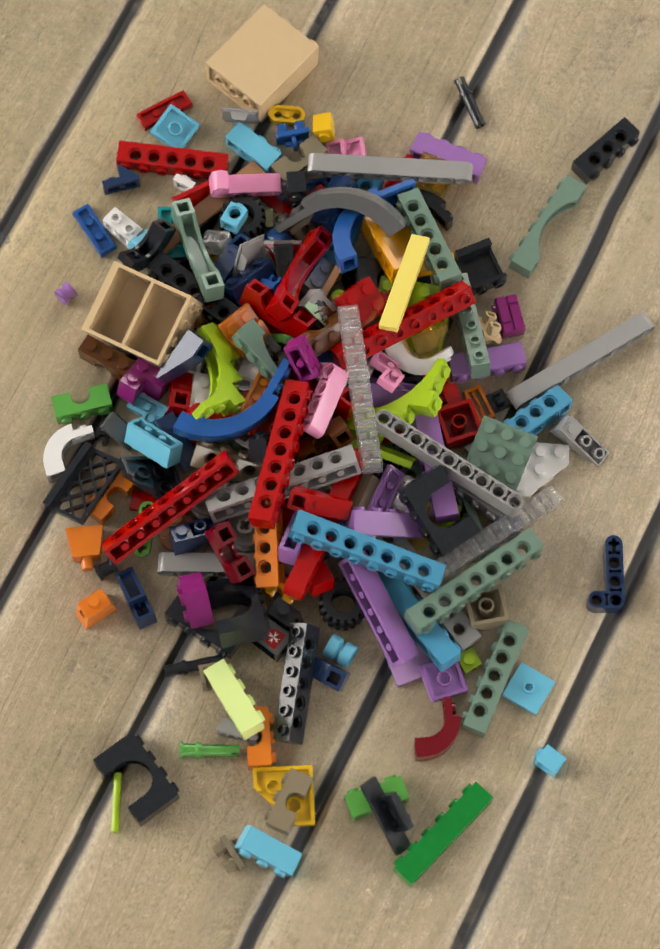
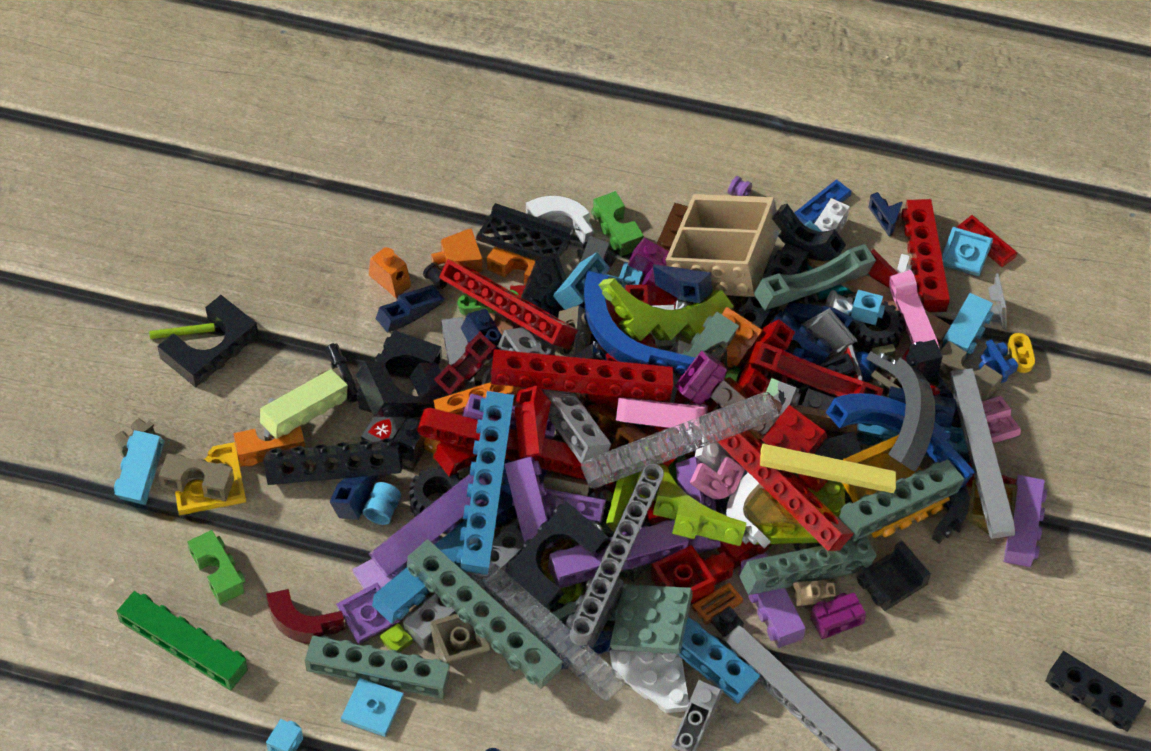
camera: 80 degrees right, 15 degrees down
(196, 600) = (407, 342): magenta brick -> none
(215, 750) = (248, 392): bright green pin -> none
(262, 62) = (1075, 313): tan container -> none
(324, 127) = (1016, 387): yellow brick -> none
(389, 814) = (199, 568): black bracket -> none
(467, 96) = (1113, 529): black pin -> none
(567, 197) = (925, 624): sand green arch -> none

